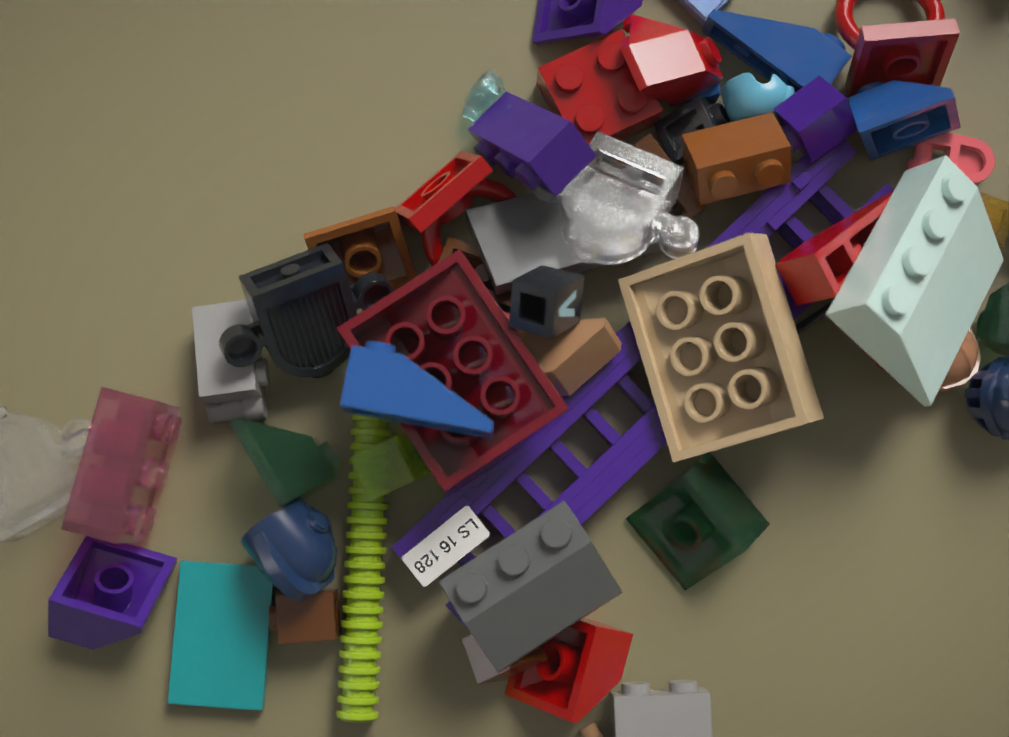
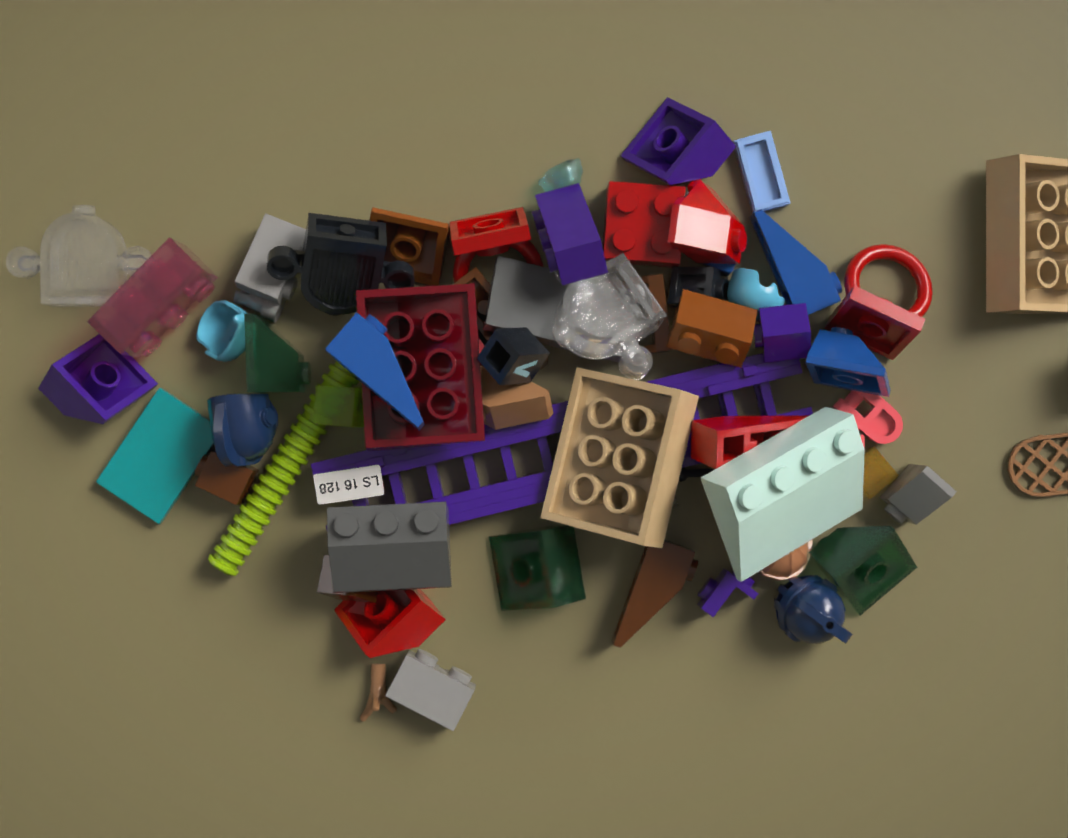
camera: 30 degrees right, 5 degrees up
(216, 459) = (222, 331): none -> medium azure hair
(832, 465) = (655, 583): none -> reddish brown slope
(903, 436) = (716, 591): none -> dark purple bracket

